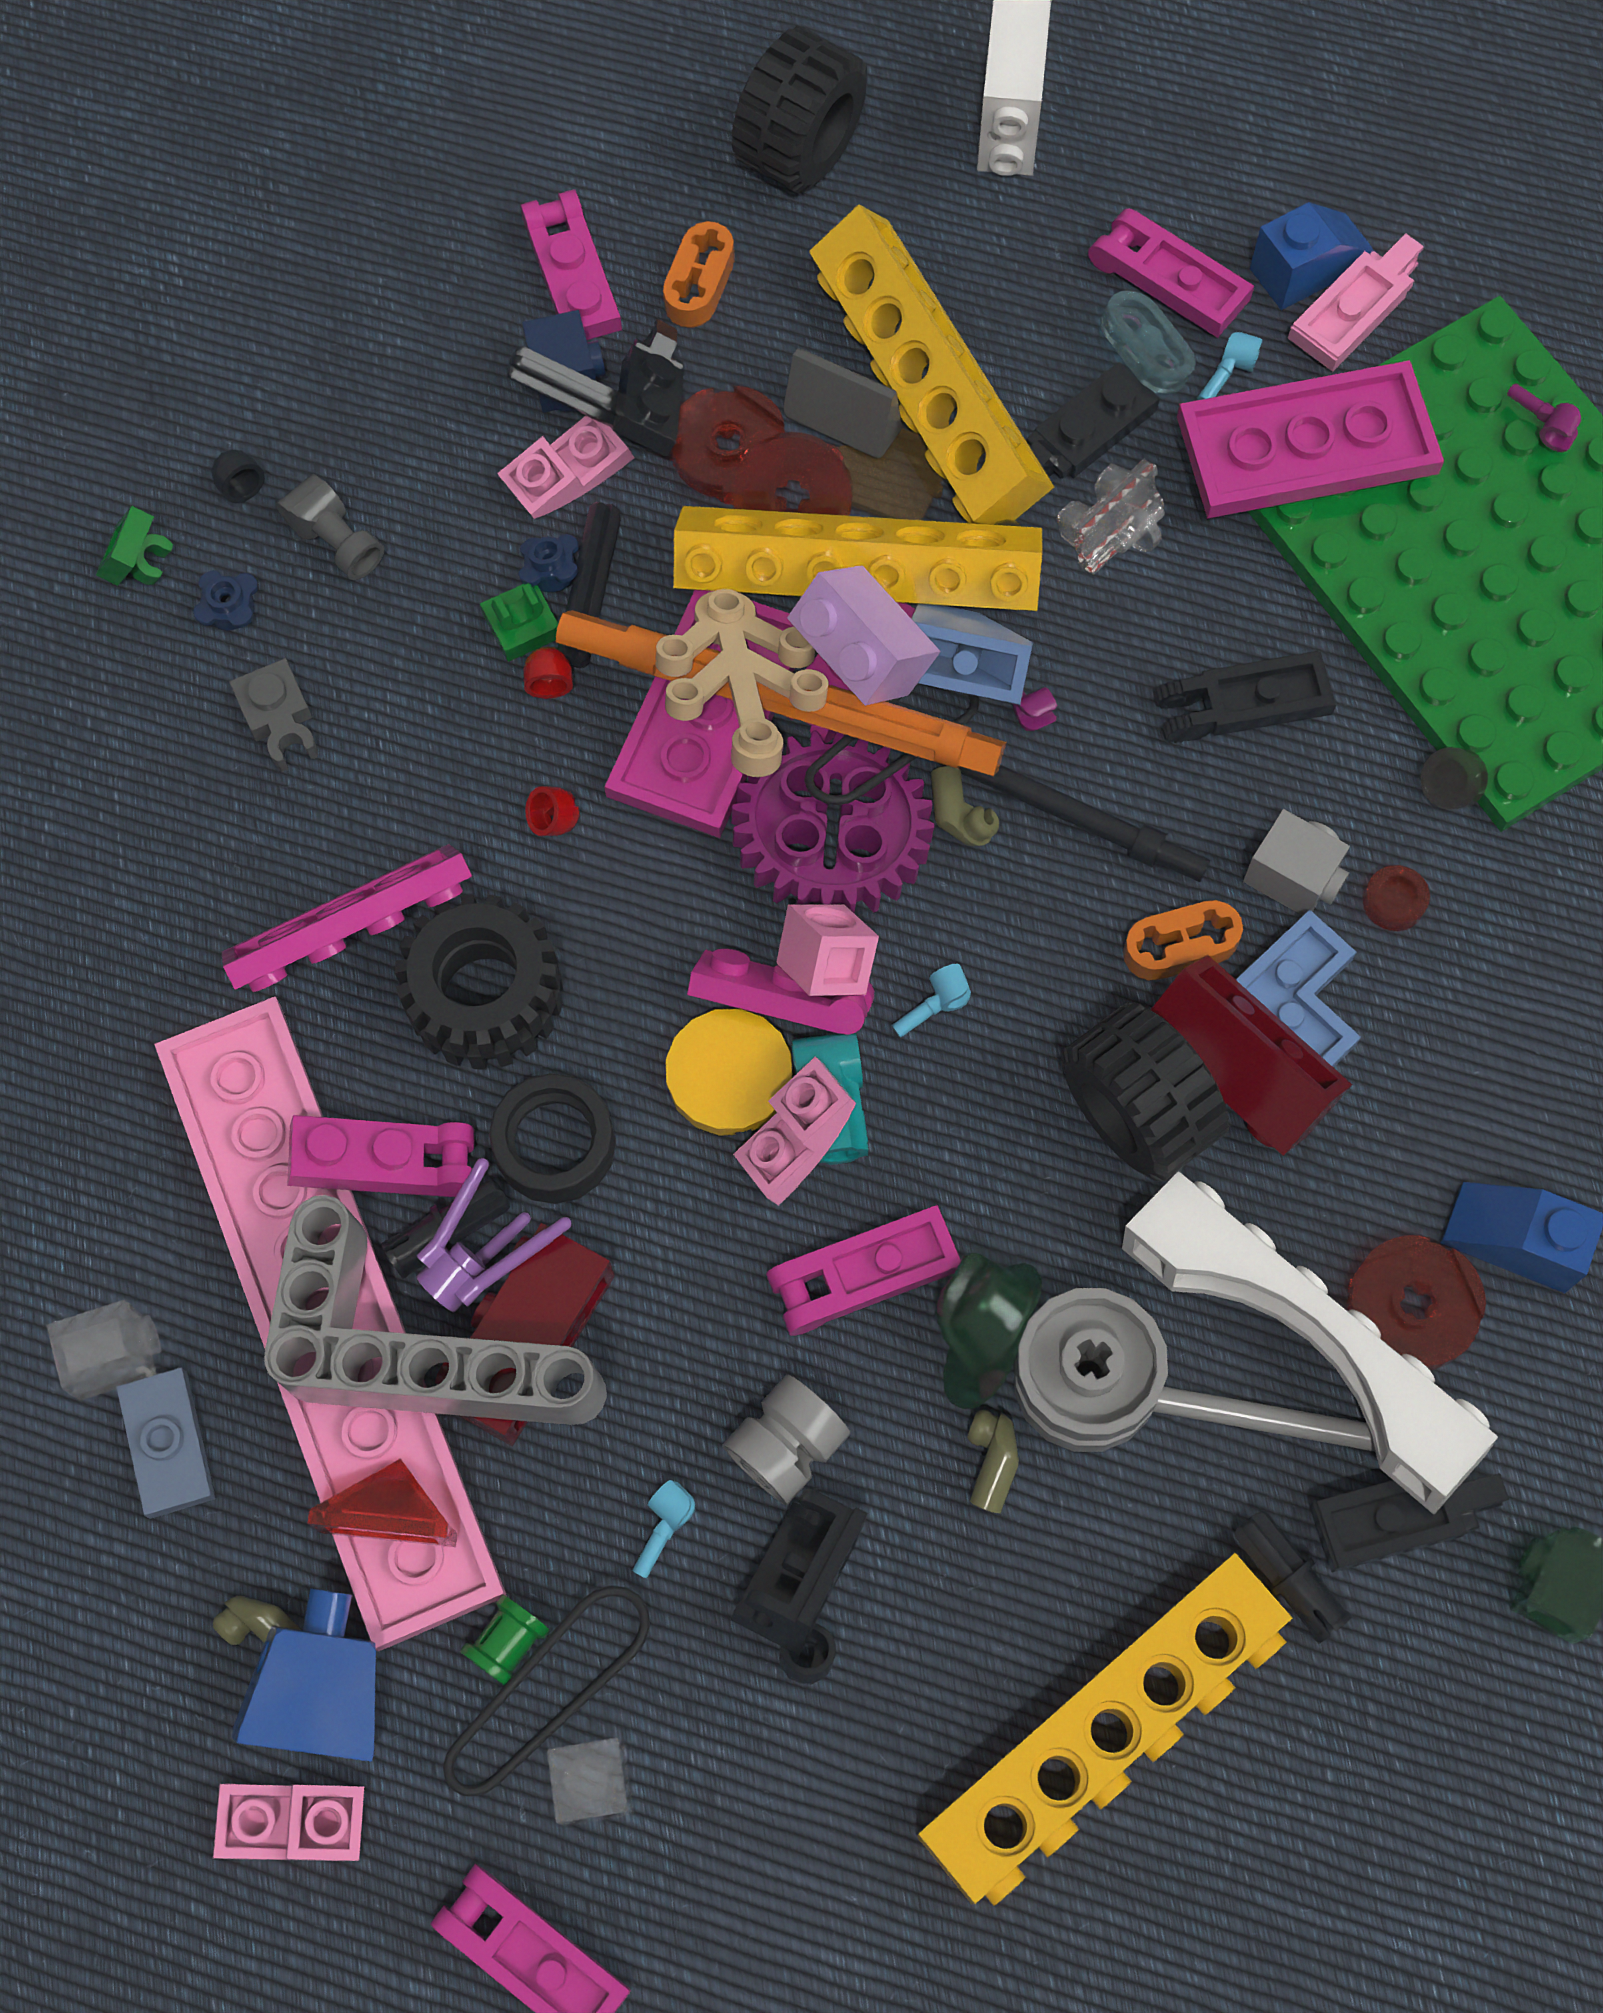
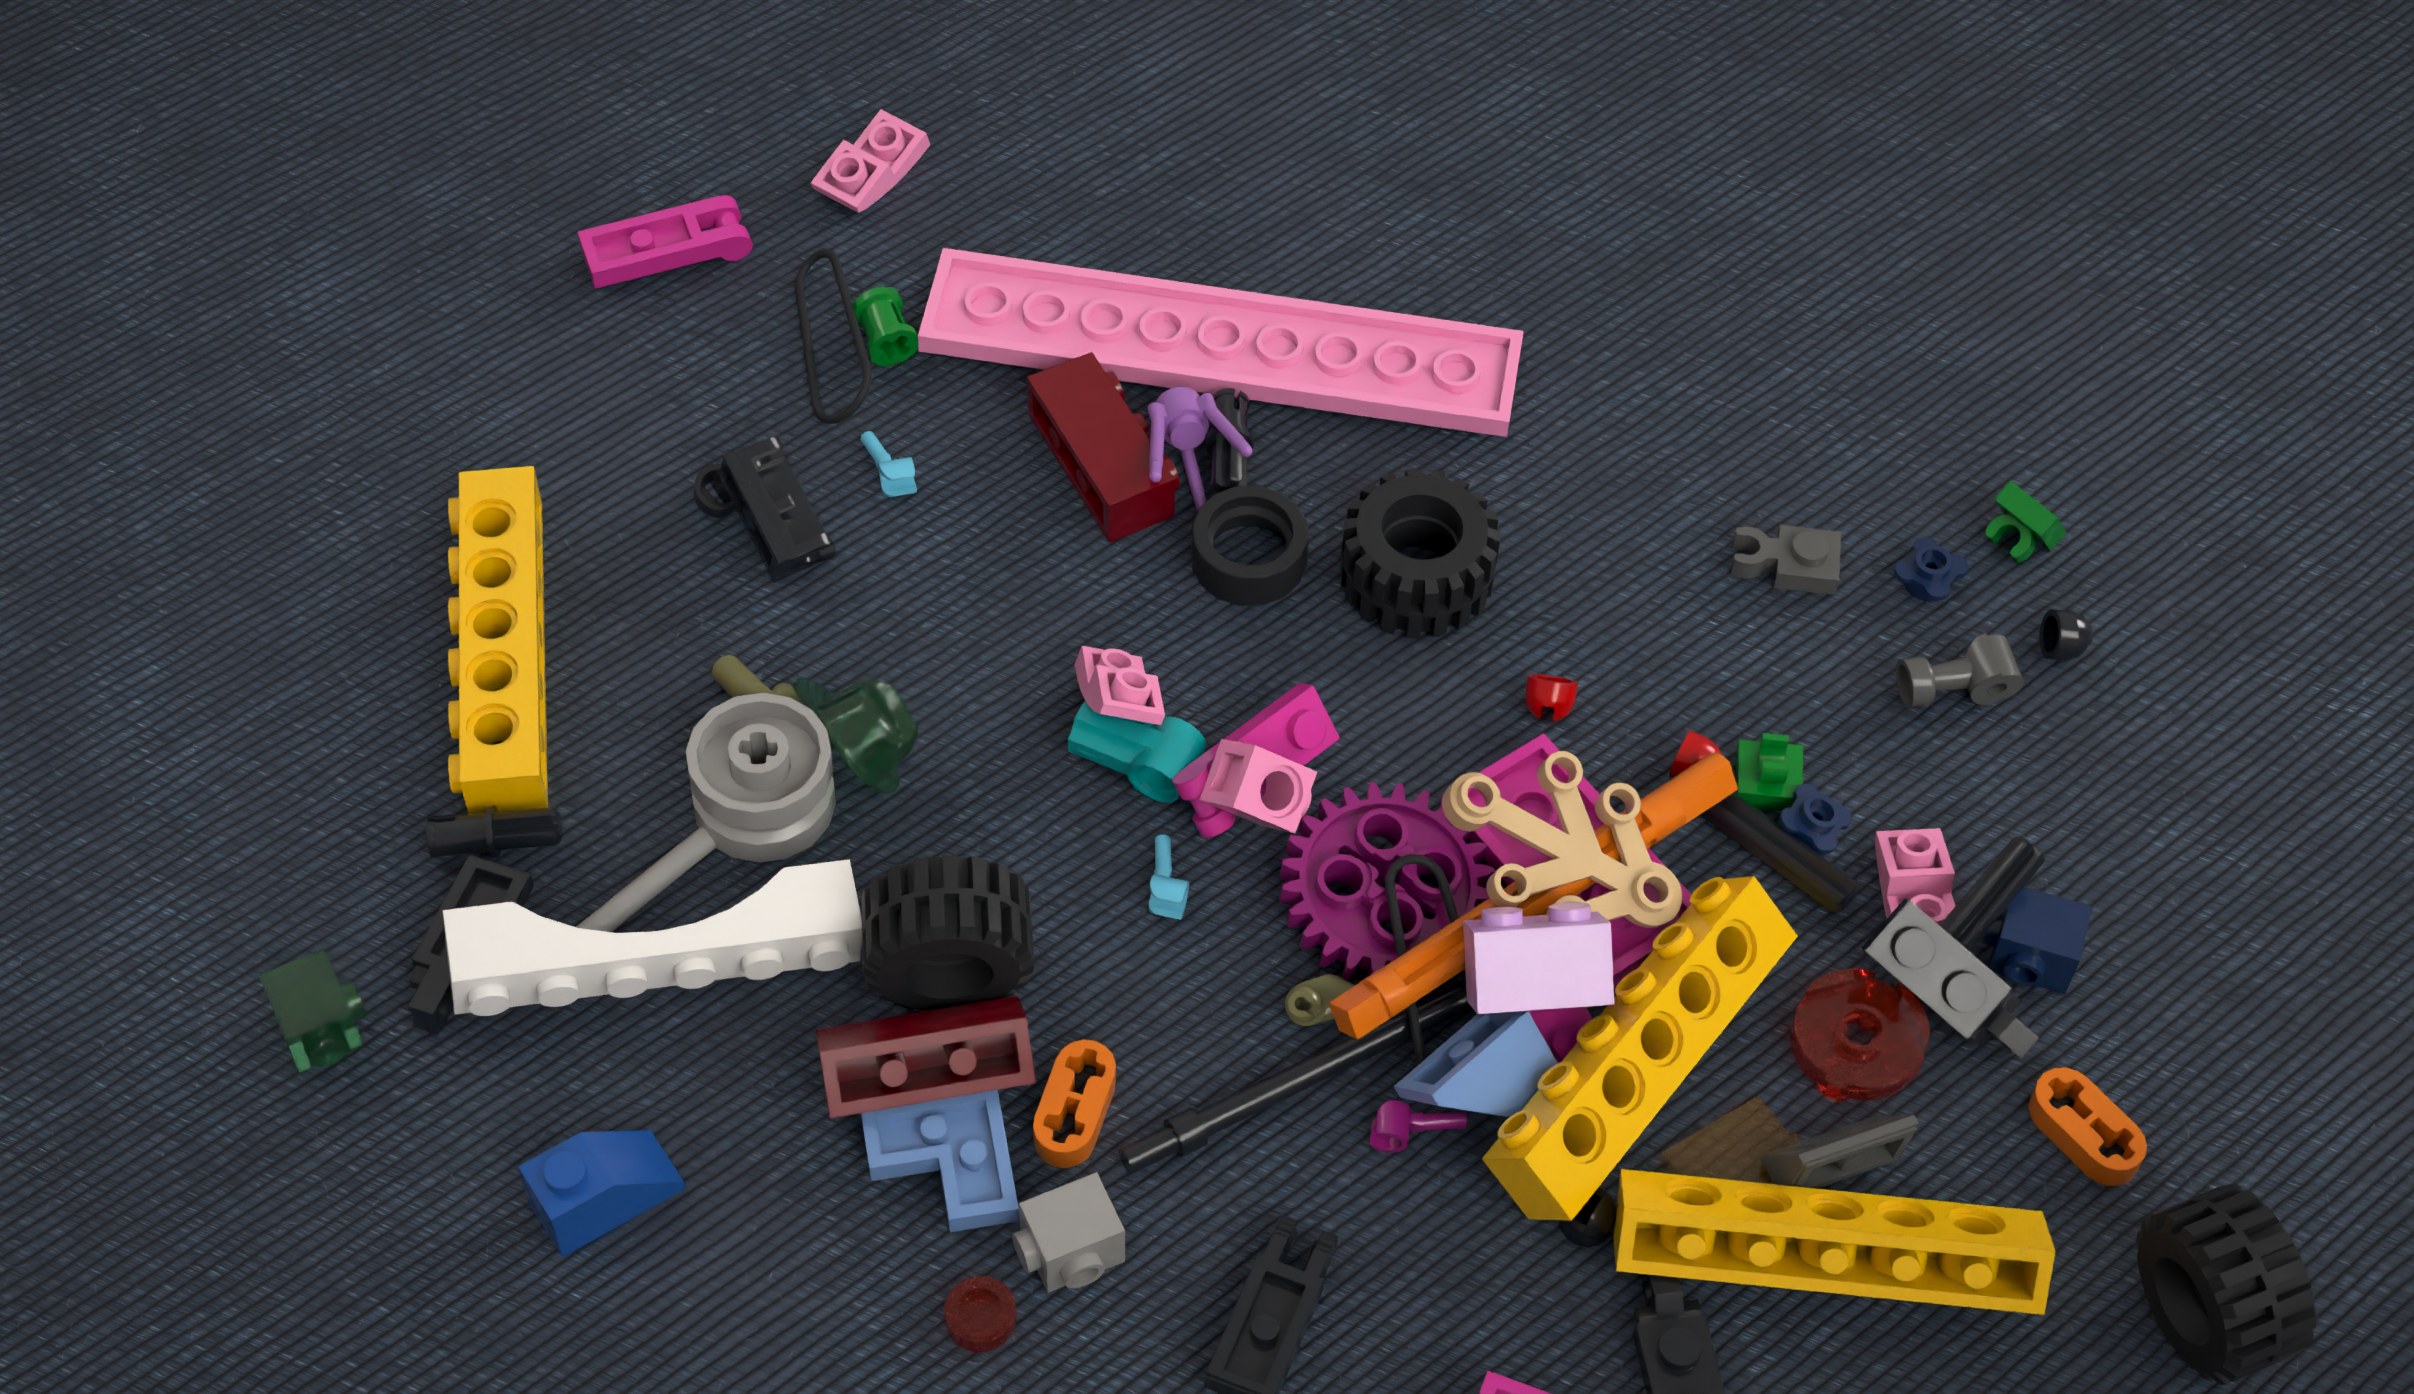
camera: 120 degrees right, 15 degrees down
(103, 1349) = (1294, 201): clear brick -> none
(165, 1443) = (1198, 216): sand blue plate -> none
(249, 1615) = (1025, 203): olive arm -> none
(313, 1686) = (939, 195): blue torso -> none
(321, 930) = (1541, 486): dark pink plate -> none
(378, 1155) = (1318, 421): dark pink plate -> none
(385, 1508) = (1025, 285): clear red slope -> none
(404, 1356) = (1160, 292): light grey beam -> none
(571, 263) = (2163, 1021): dark pink plate -> none
(590, 1782) = (743, 319): clear brick -> none
(727, 1071) = (1217, 687): yellow tile -> none
(786, 1439) = (880, 556): light grey wheel -> none
(799, 458) = (1762, 1036): clear red plate -> none
(865, 1269) = (971, 694): dark pink plate -> none
(1120, 519) = (1544, 1320): clear hips -> none
(1430, 1270) = (623, 1099): clear red plate -> none

